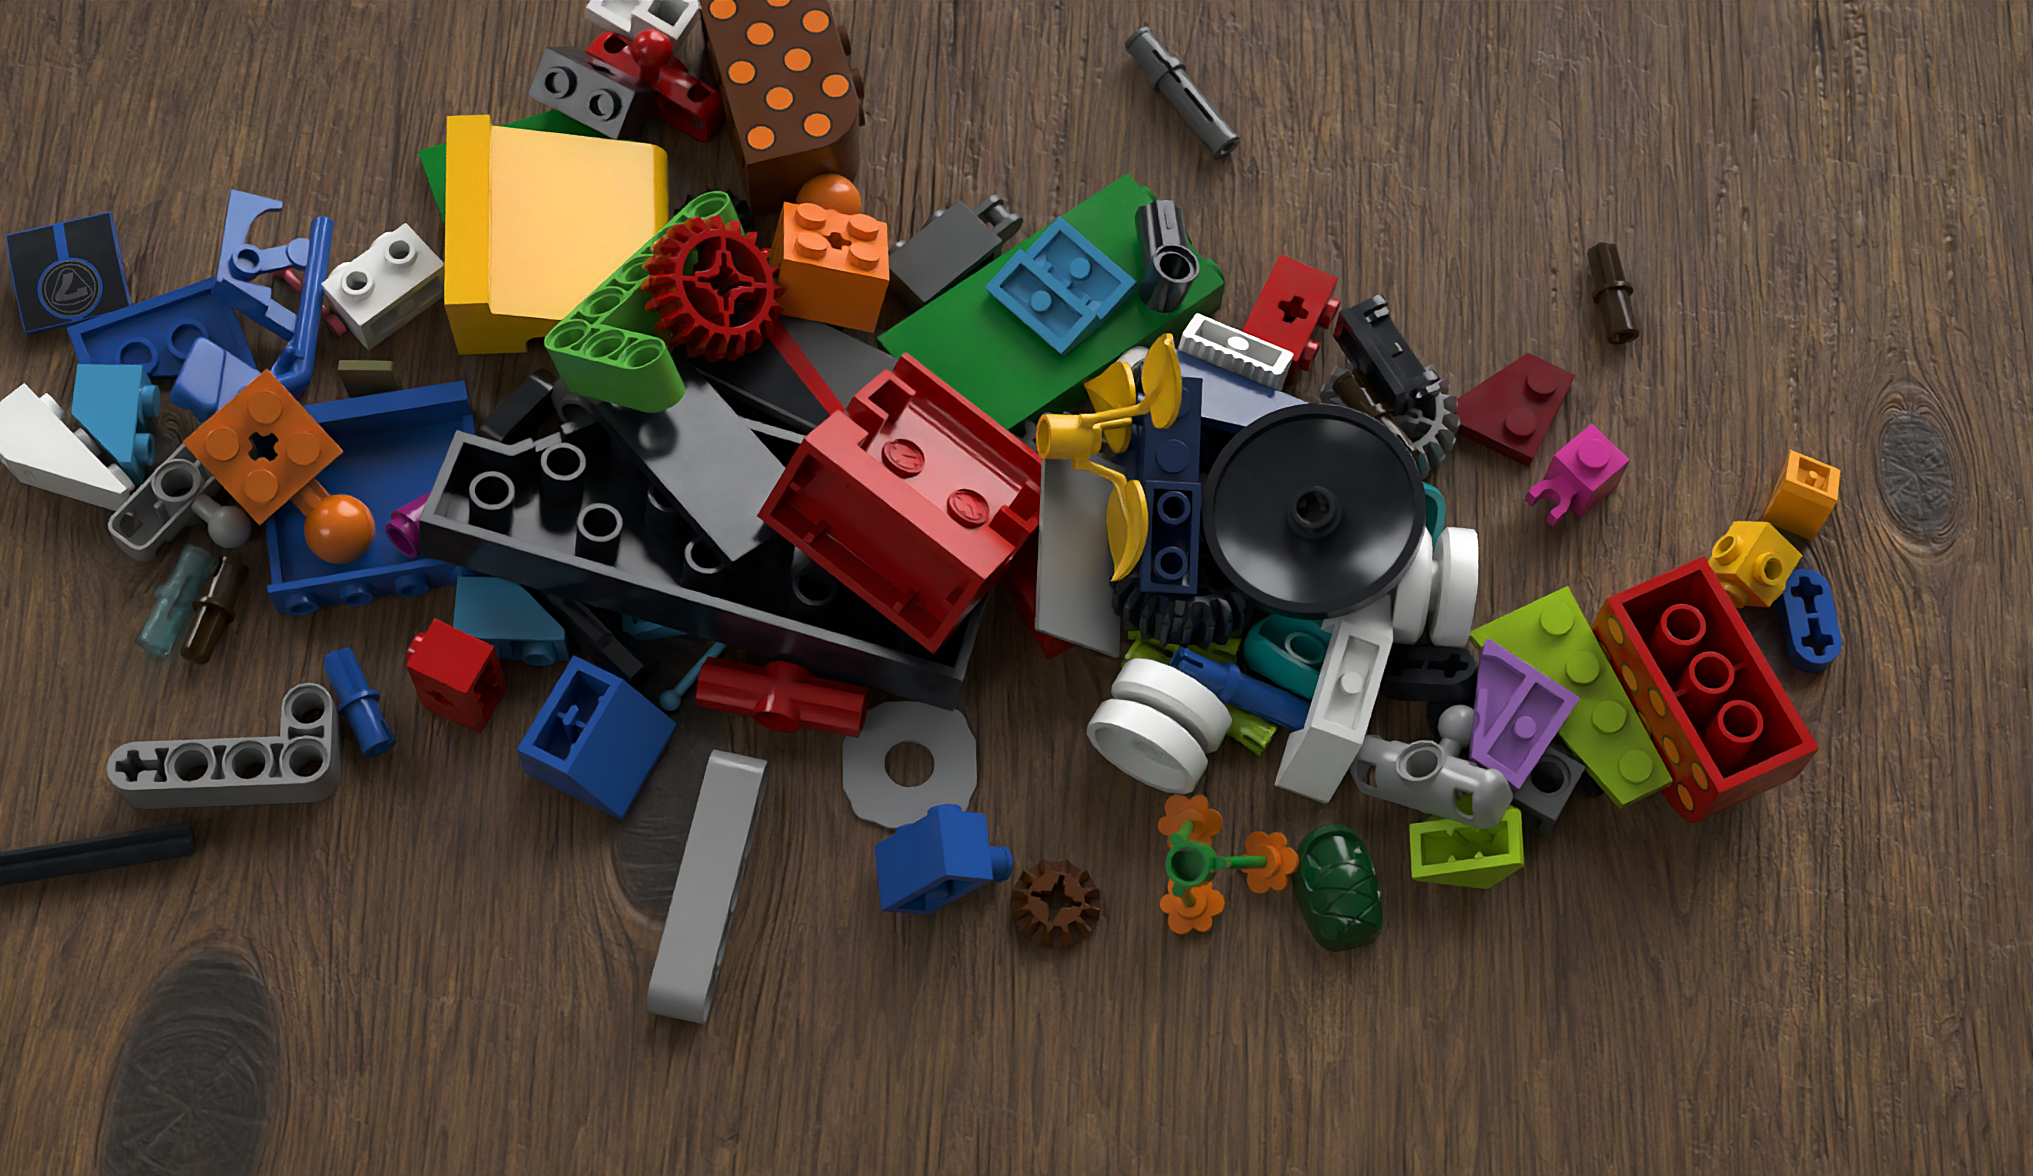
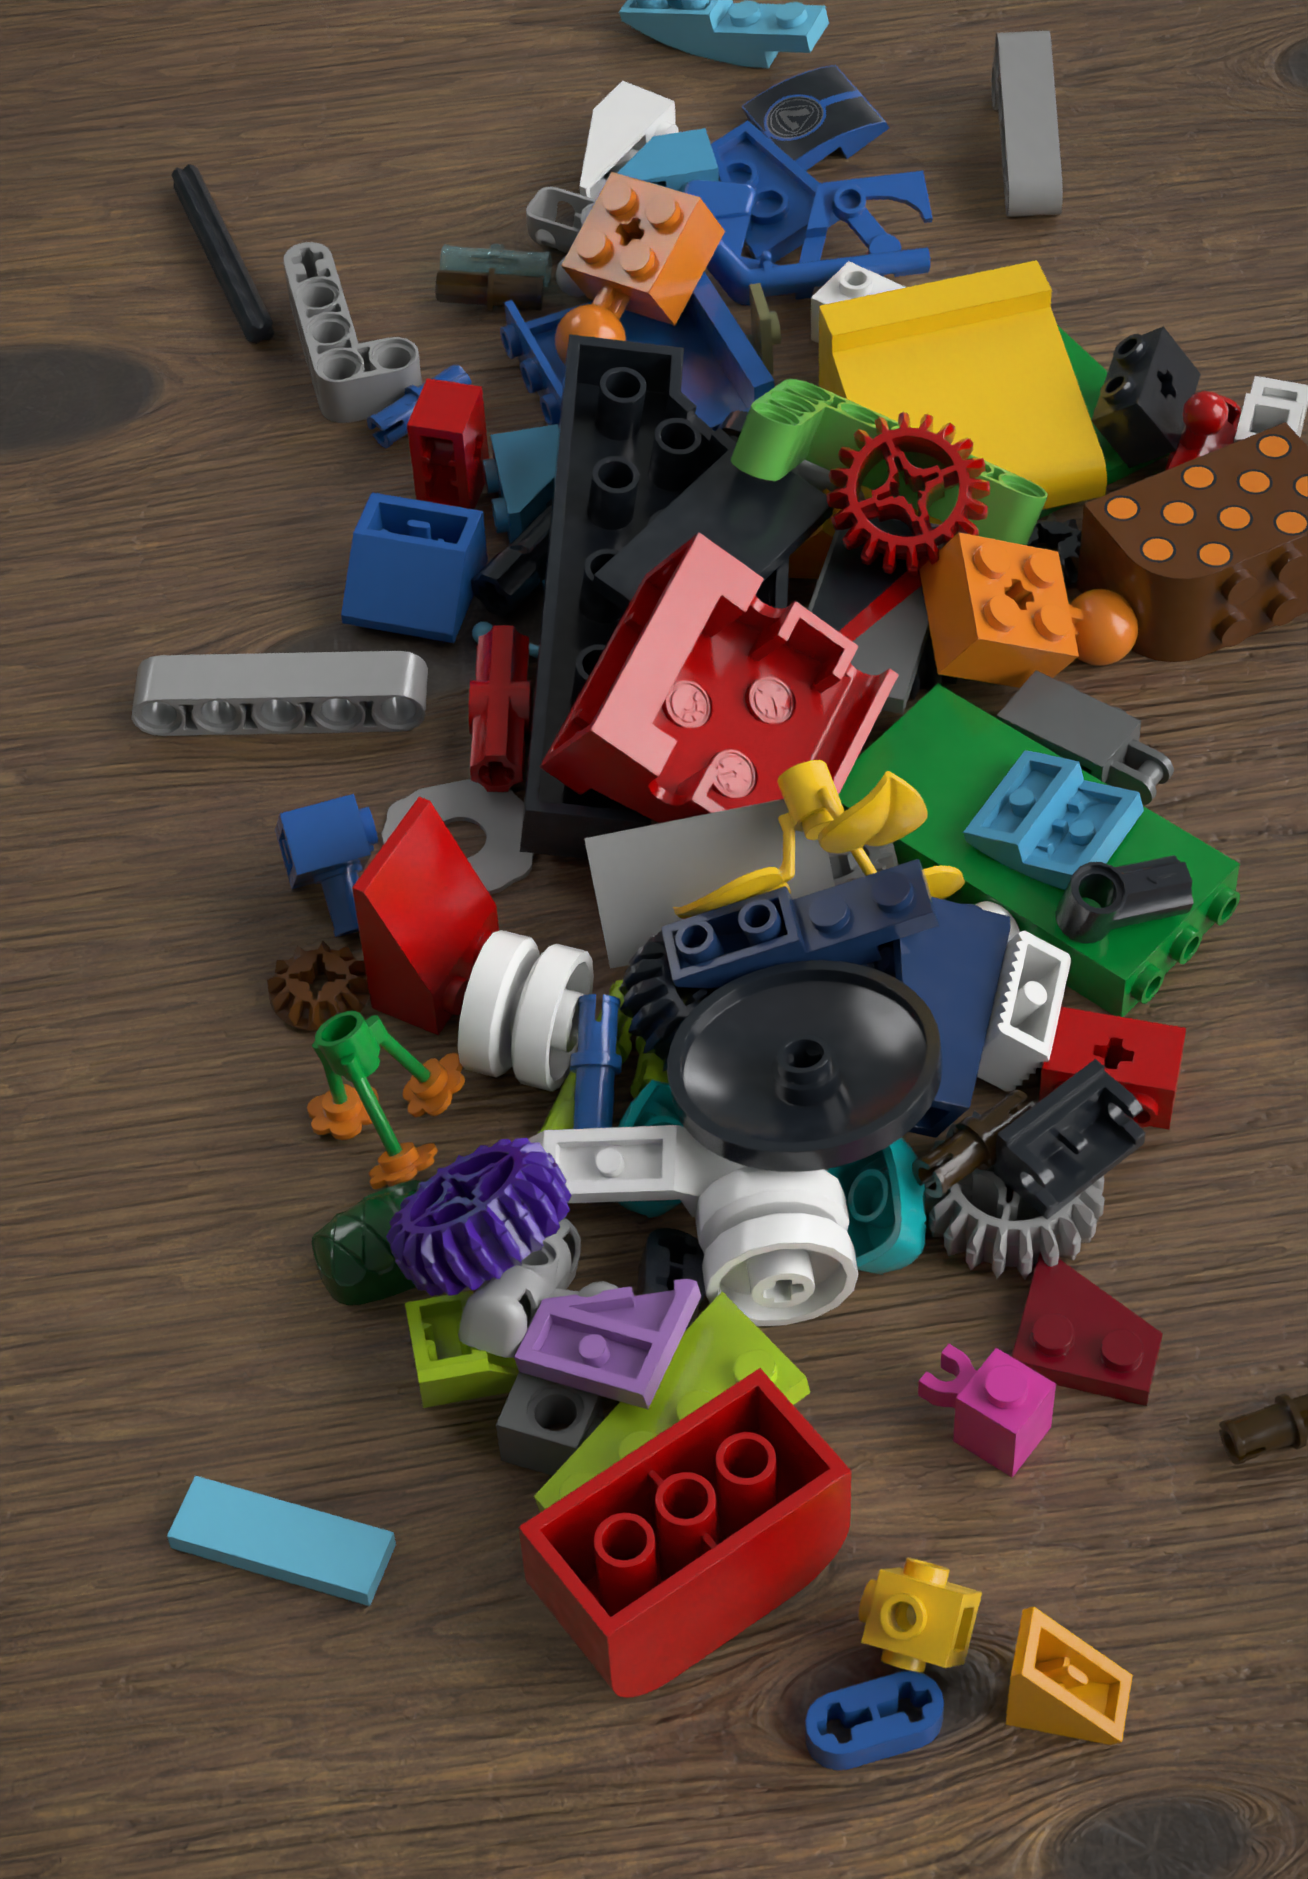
camera: 85 degrees right, 15 degrees down
(171, 89) = (1027, 122): none -> light grey beam
(1054, 794) = (421, 921): none -> red slope
(1410, 804) = (479, 1216): none -> dark purple gear
(1600, 1010) = (282, 1540): none -> medium azure tile

